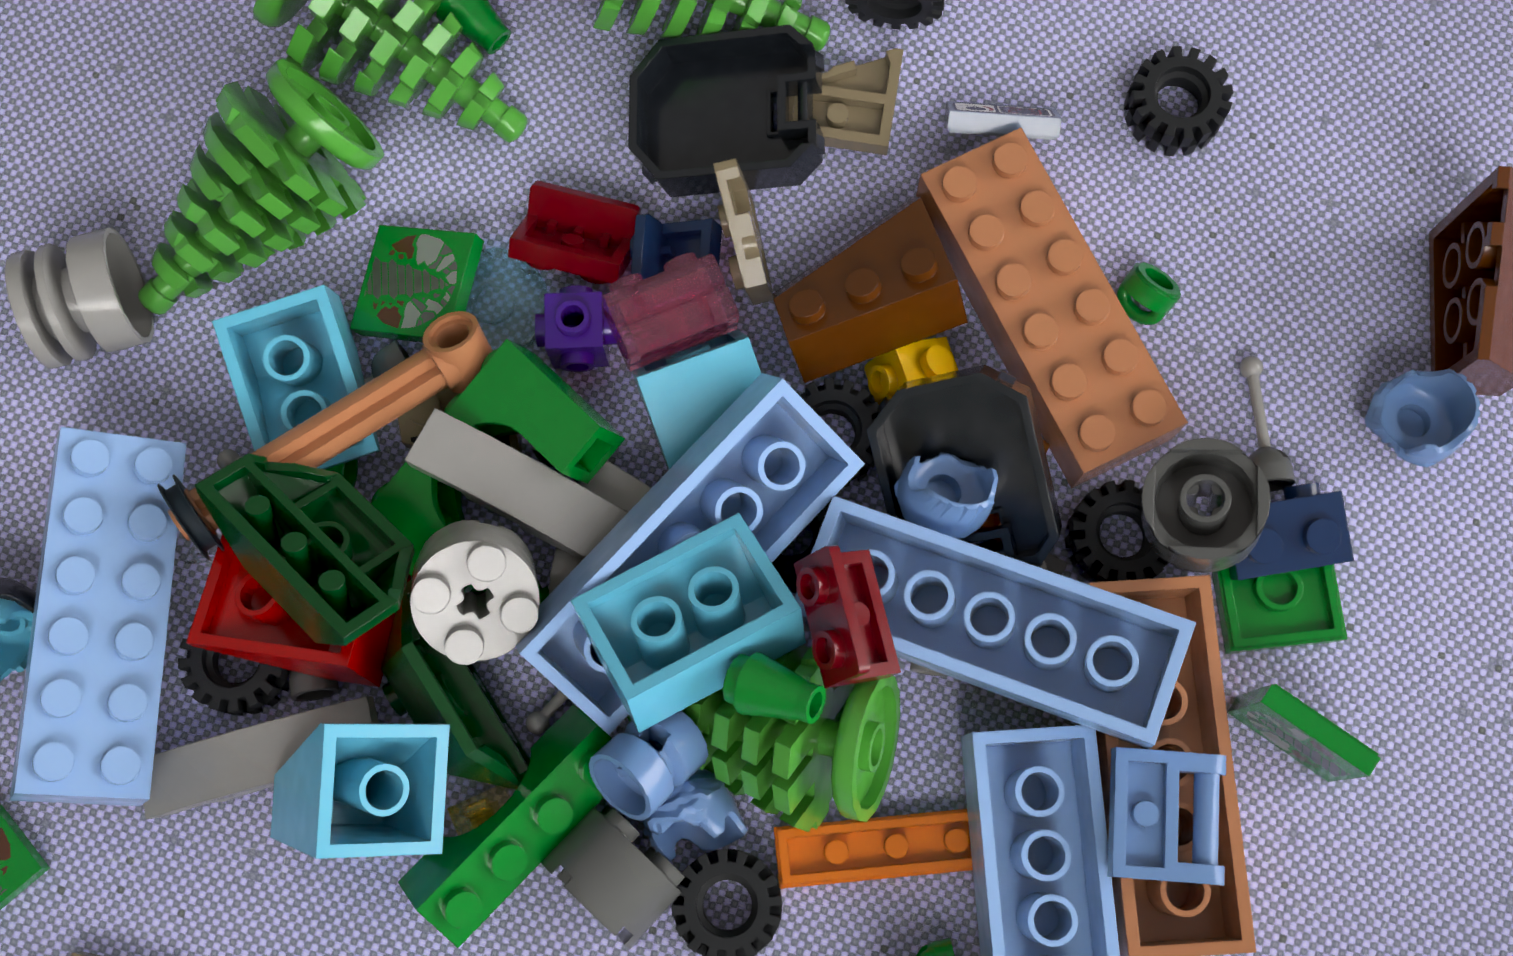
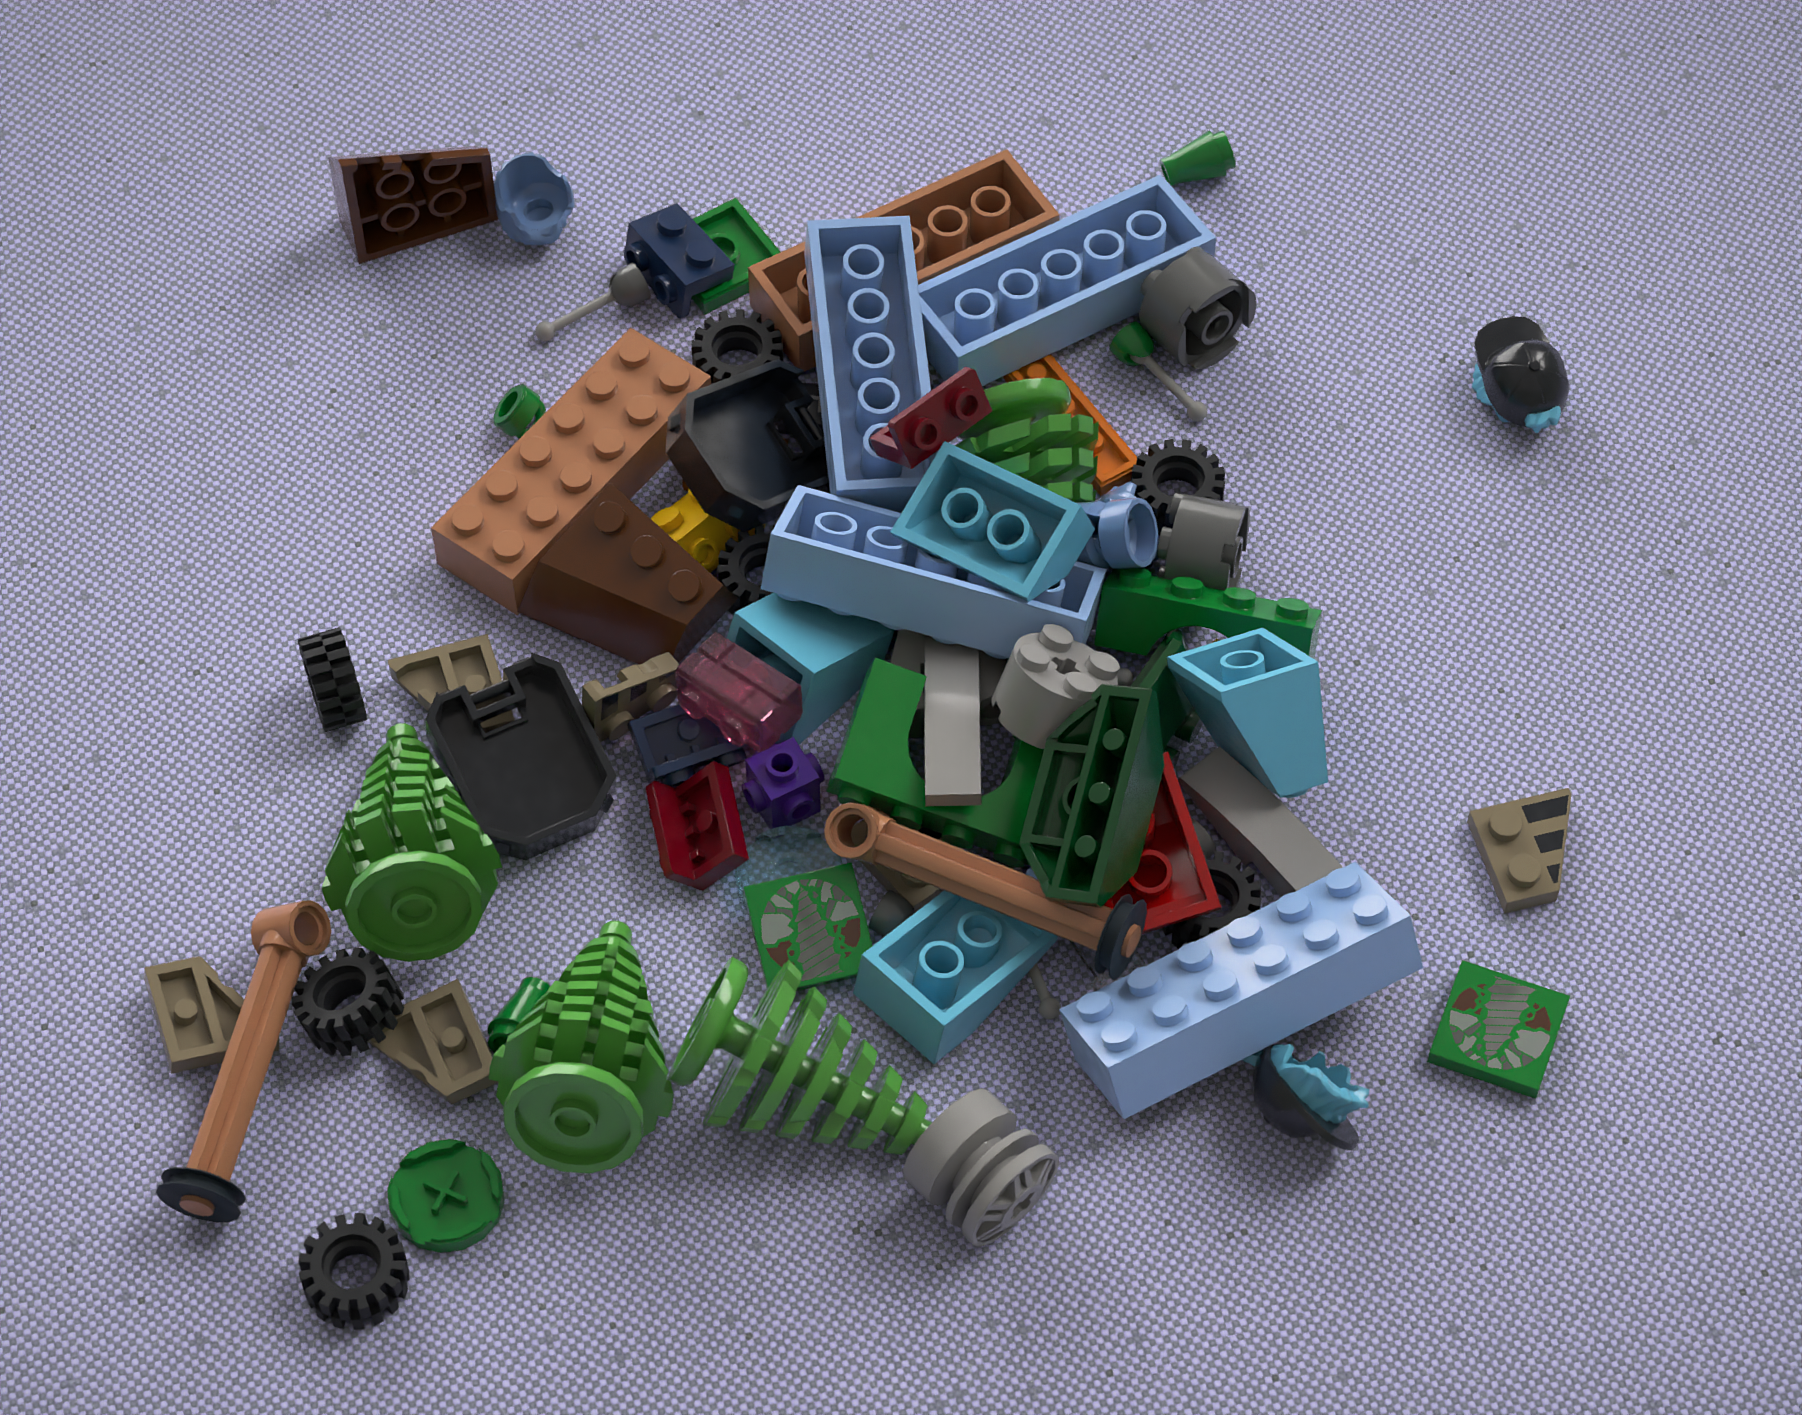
camera: 120 degrees left, 20 degrees down
(771, 690) = (1014, 436): green cone -> none
(946, 494) = (785, 436): medium blue hair -> none
(1002, 119) = (416, 566): tile -> none
(1147, 815) = (954, 229): medium blue plate -> none
(1190, 75) = (327, 433): black tyre -> none
(1235, 492) = (700, 280): dark grey brick -> none
(1304, 734) = (832, 170): green tile -> none

